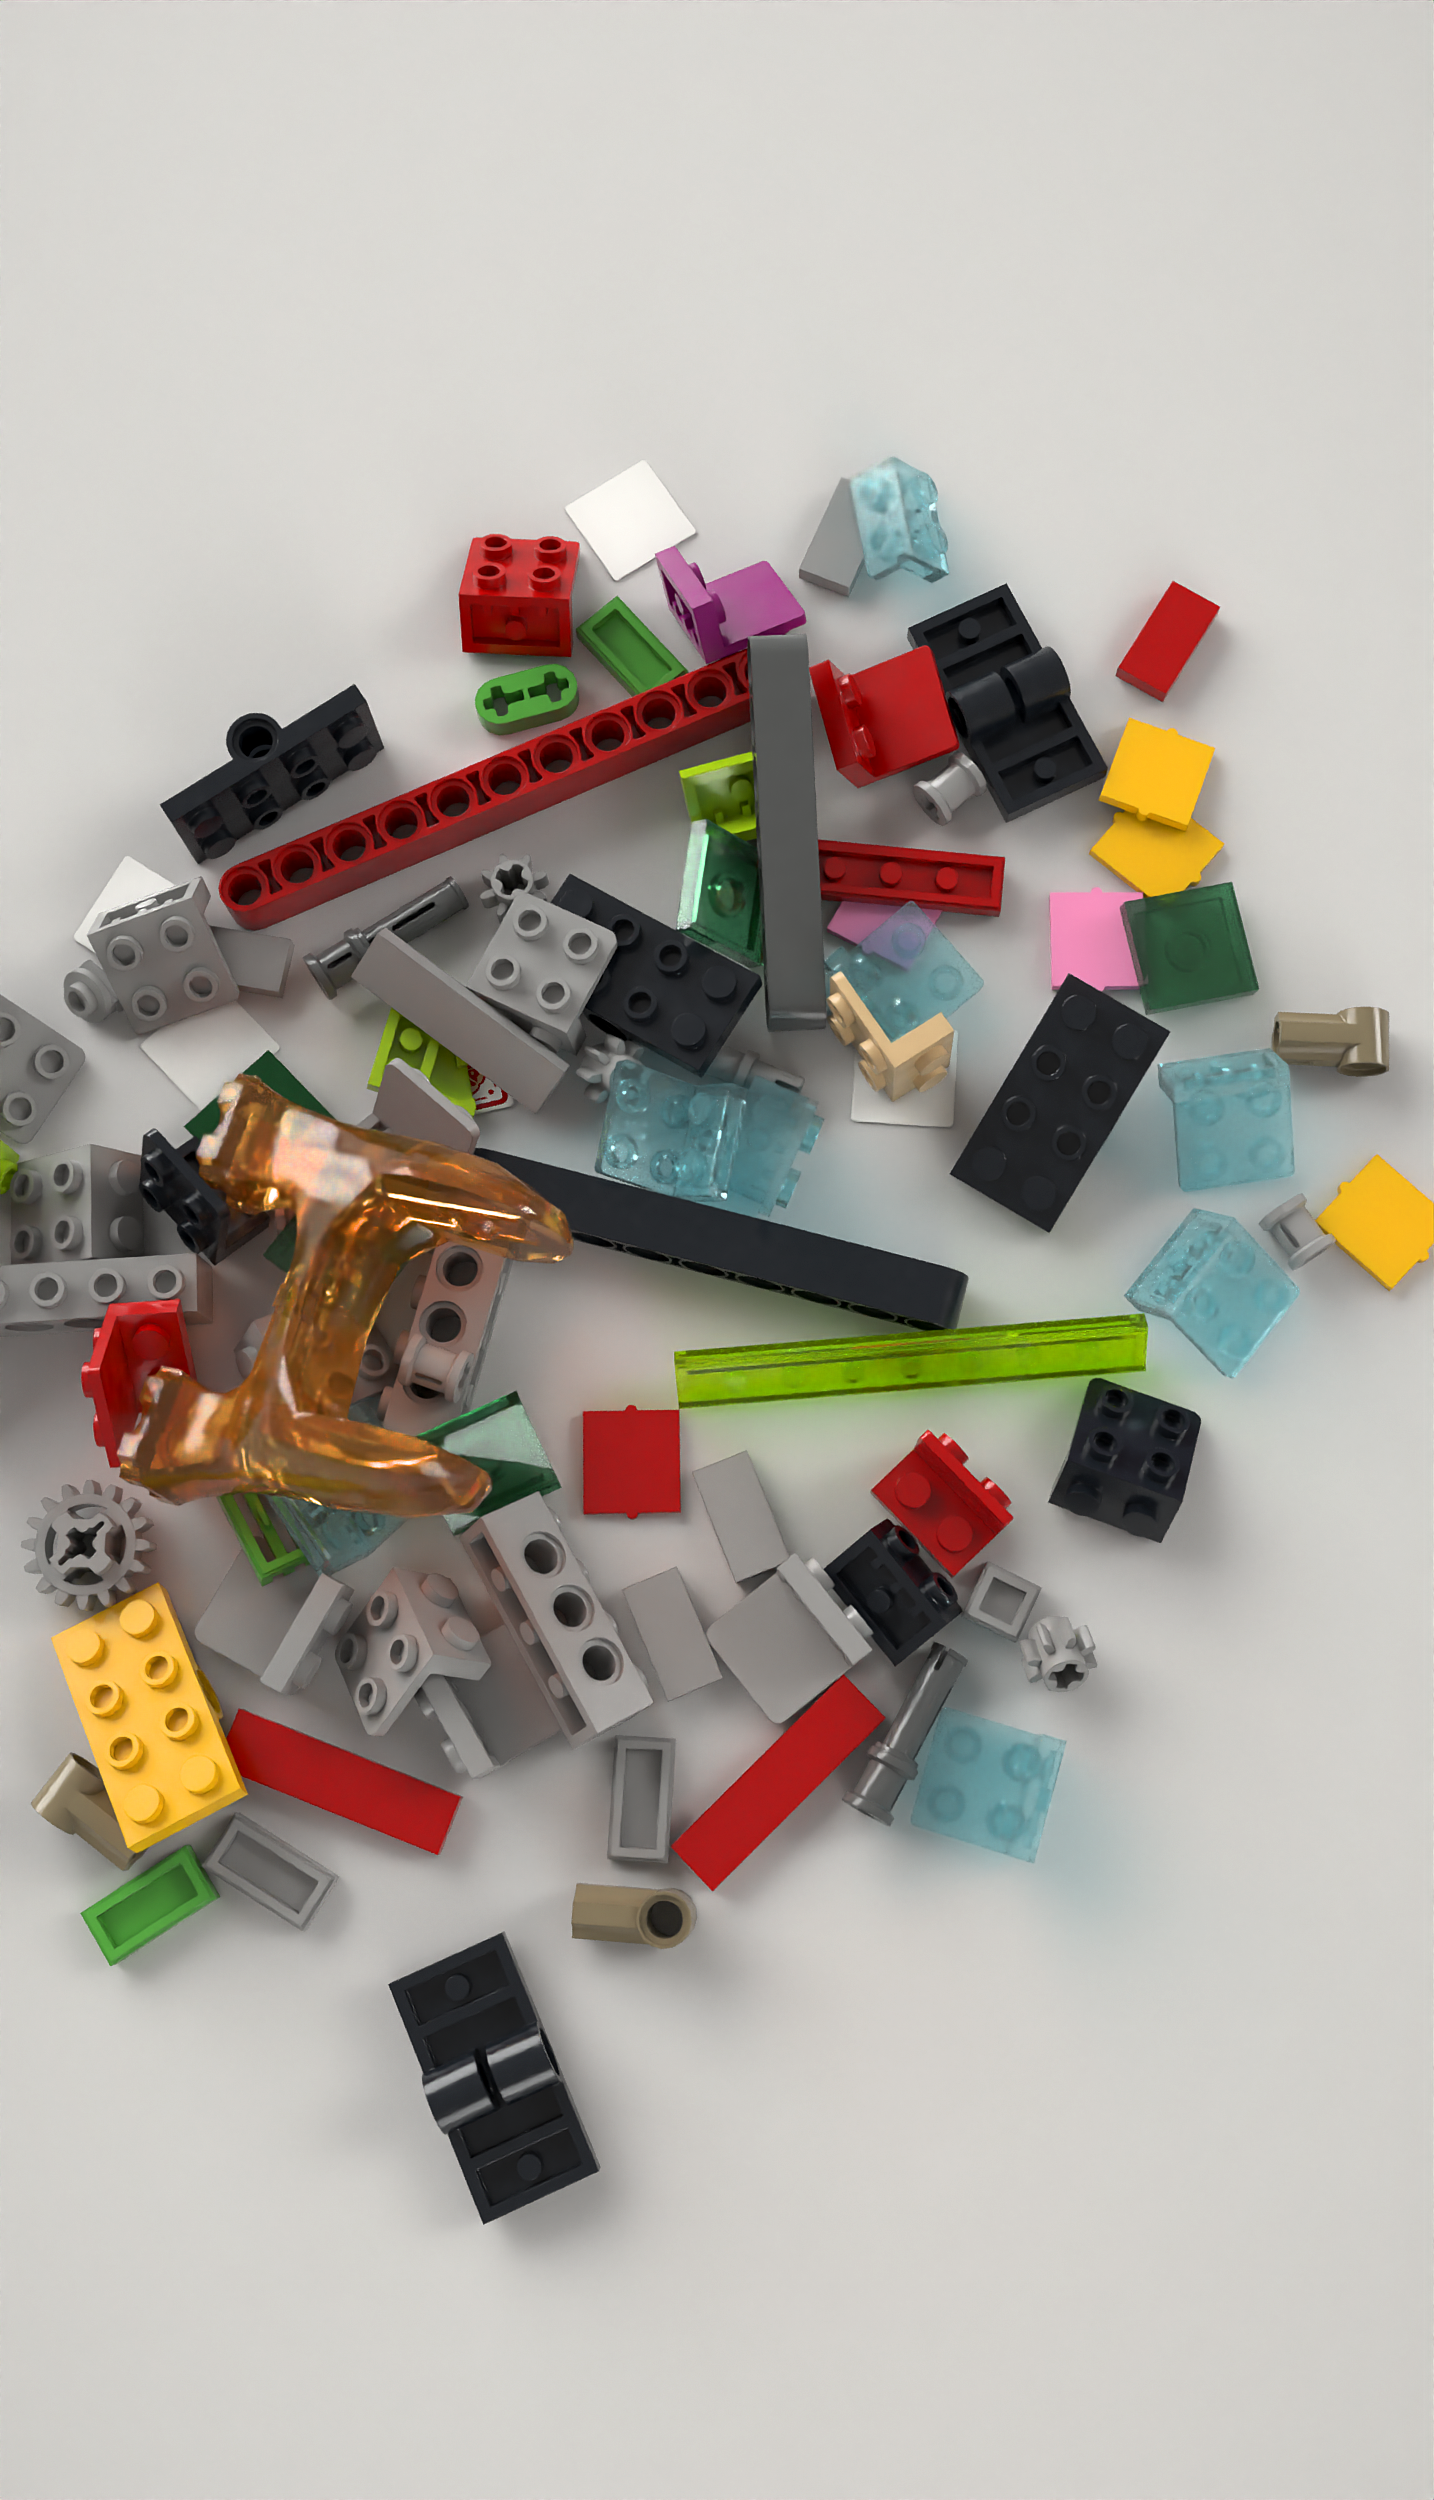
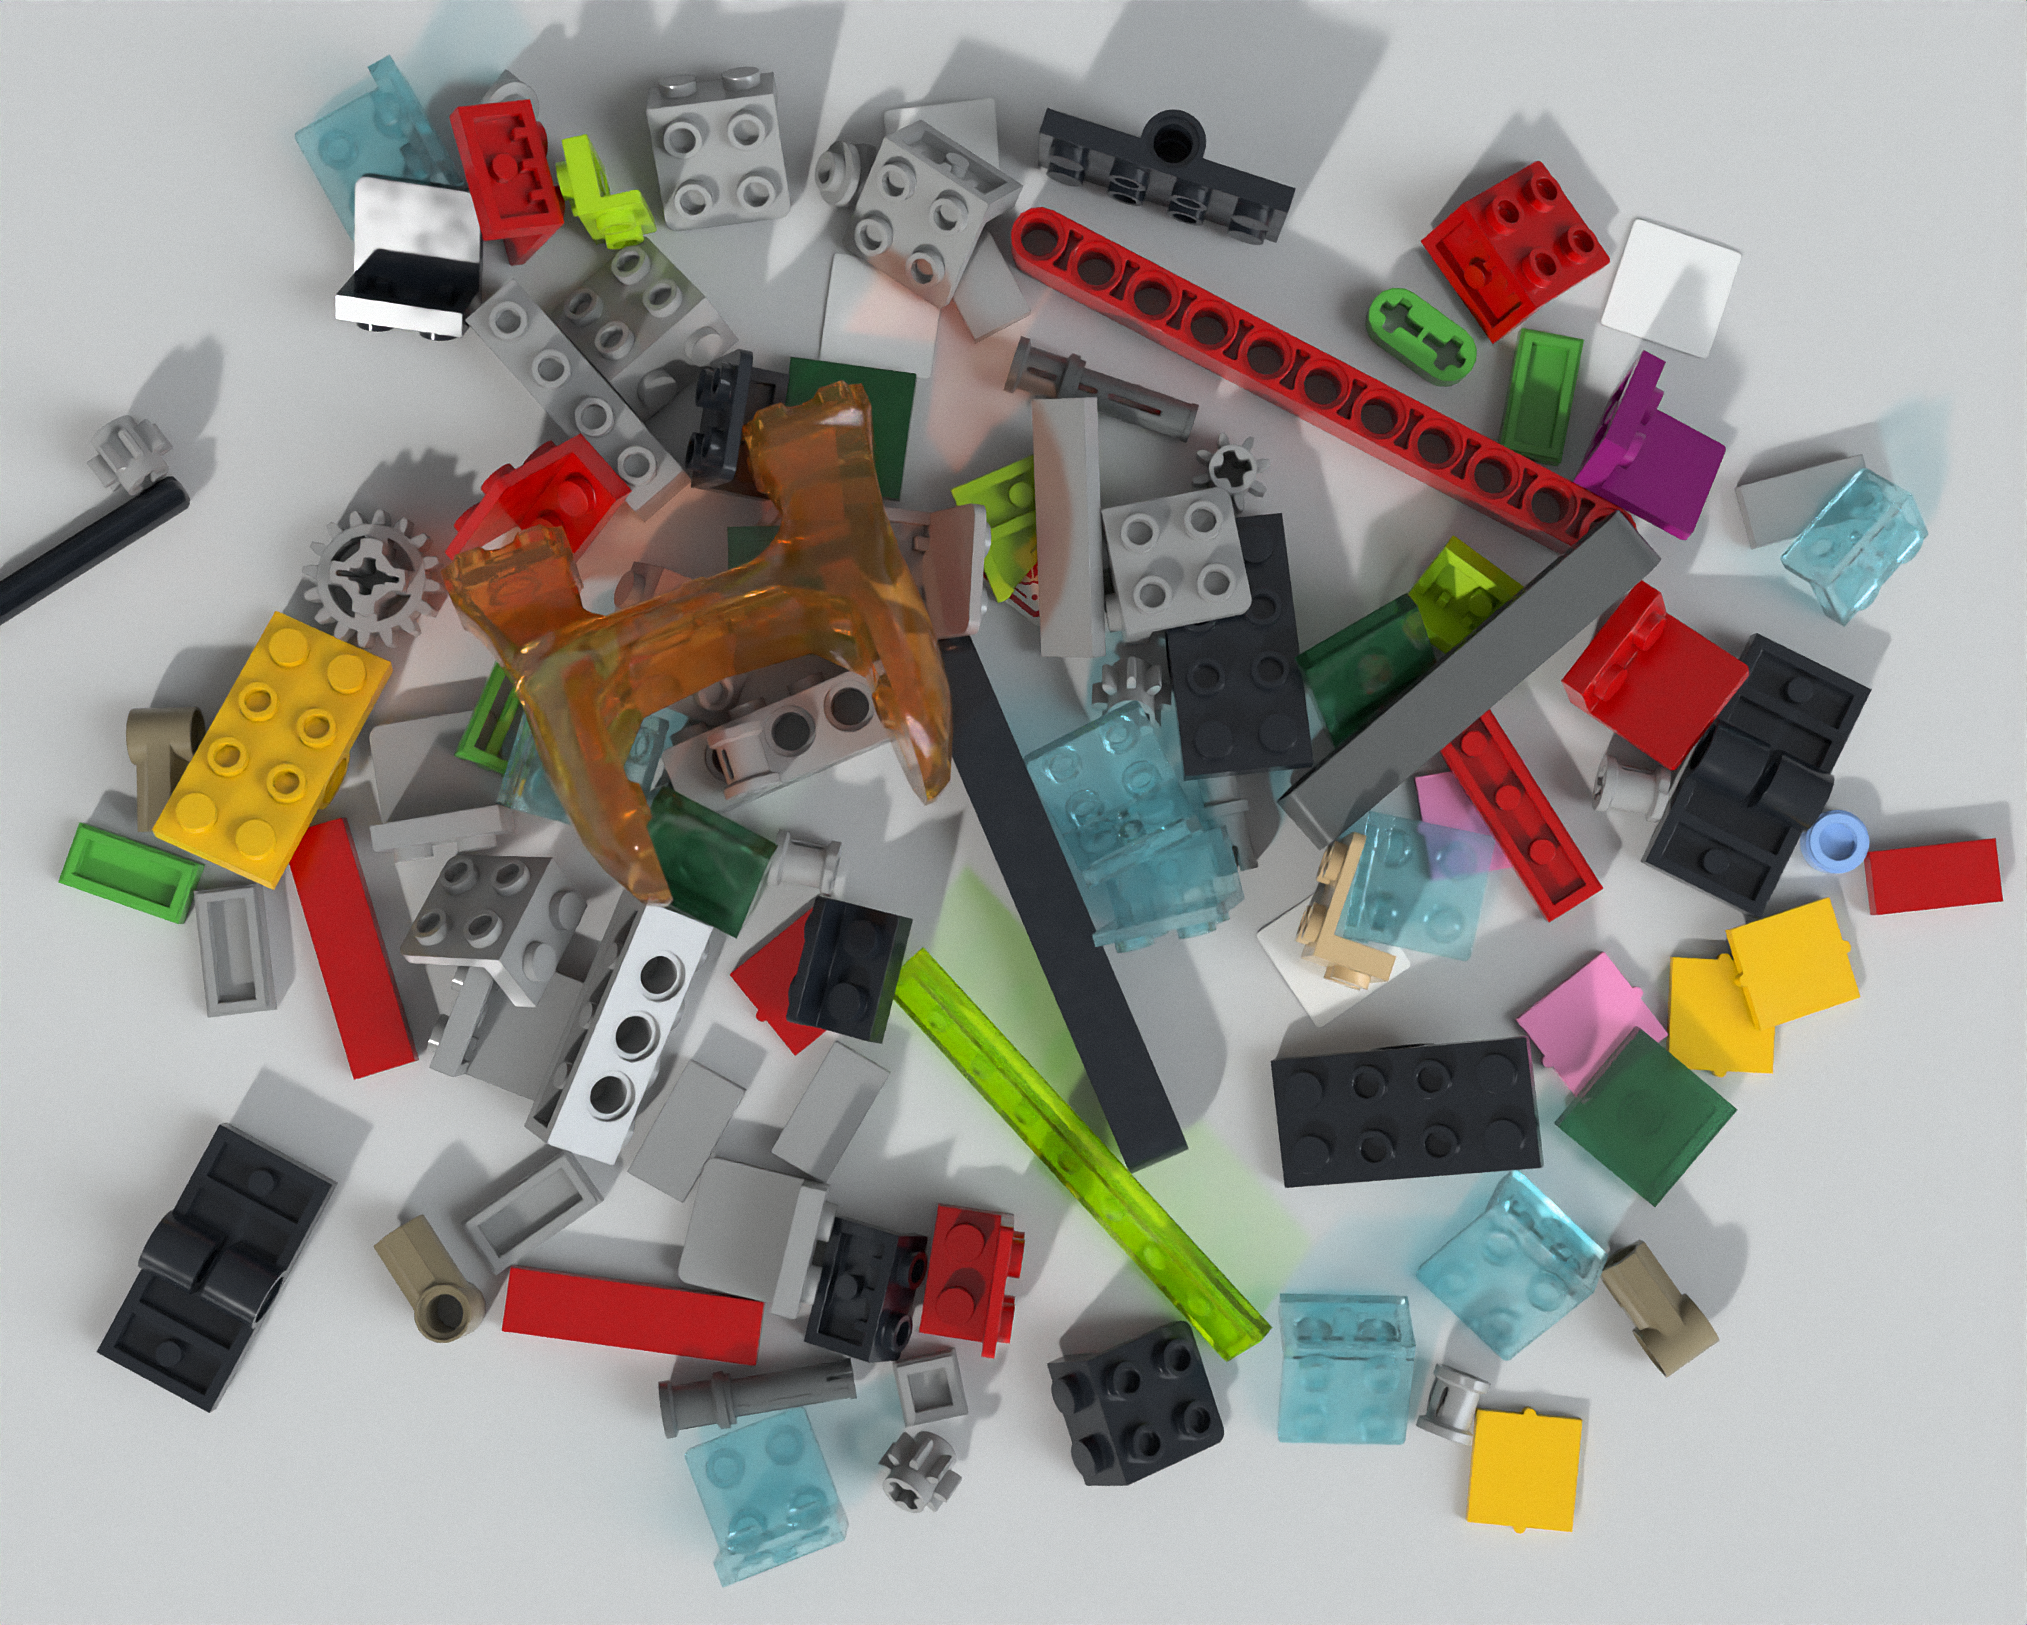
camera: 45 degrees right, 10 degrees up
(548, 1392) = (805, 863): none -> light grey bush
(647, 1417) = (848, 969): none -> black bracket
(1094, 686) = (1835, 842): none -> light blue tile

